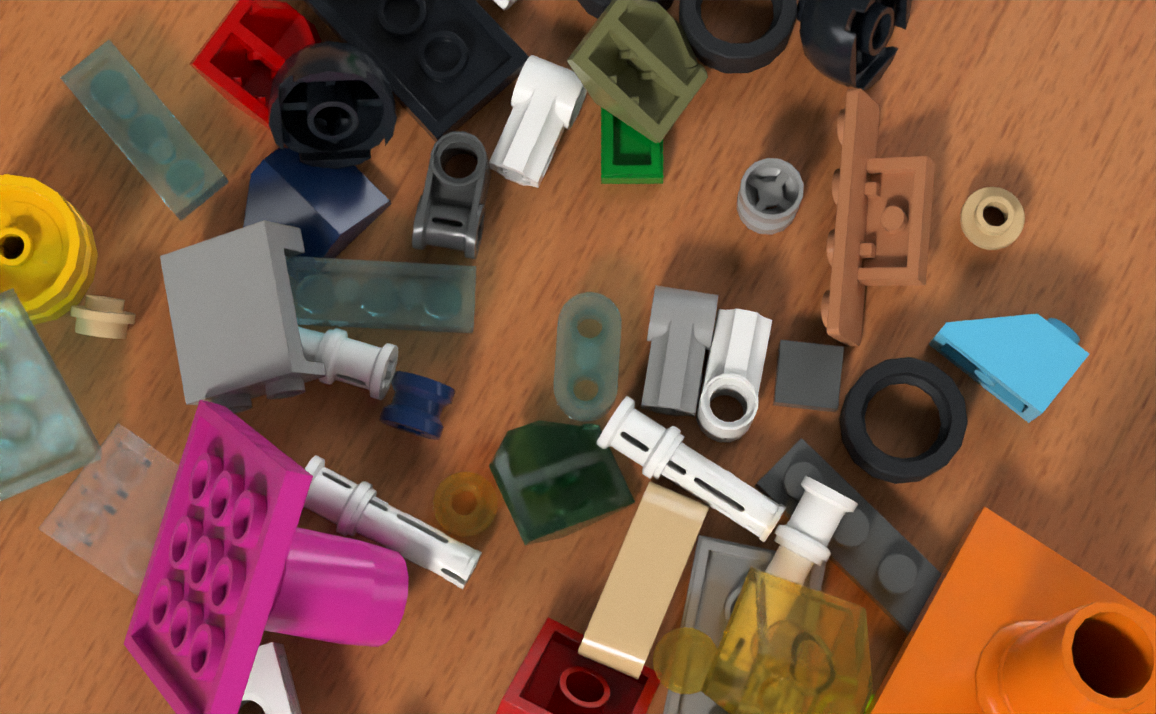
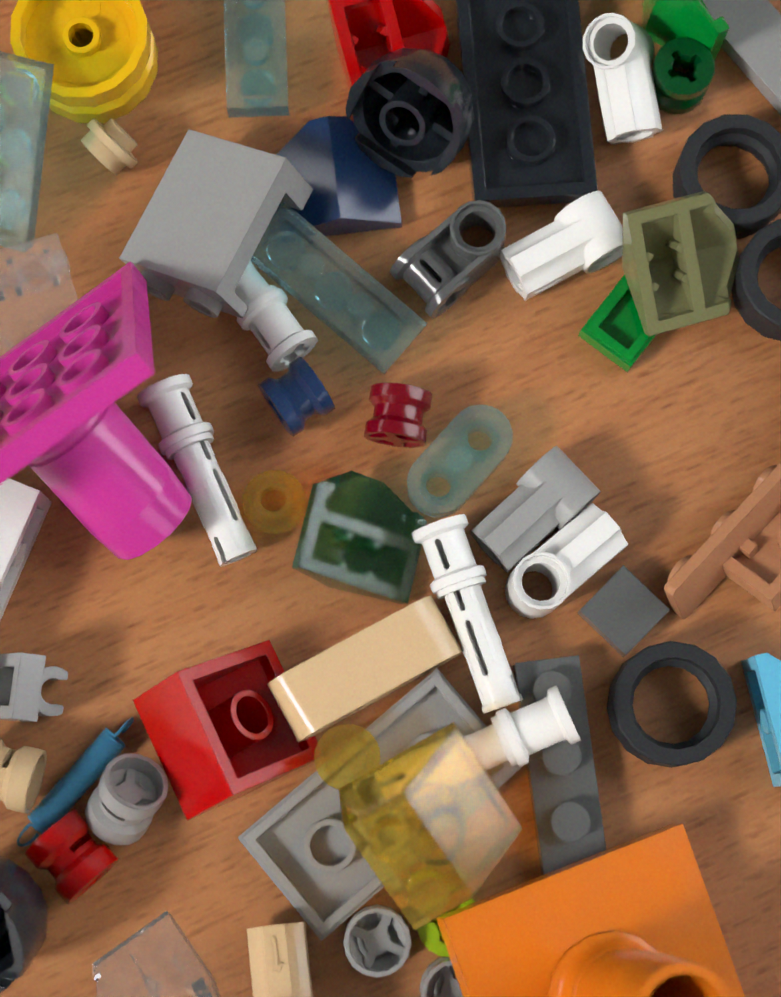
camera: 30 degrees right, 0 degrees up
(510, 357) = (398, 415): none -> dark red wheel
(776, 185) = (714, 438): light grey wheel -> none

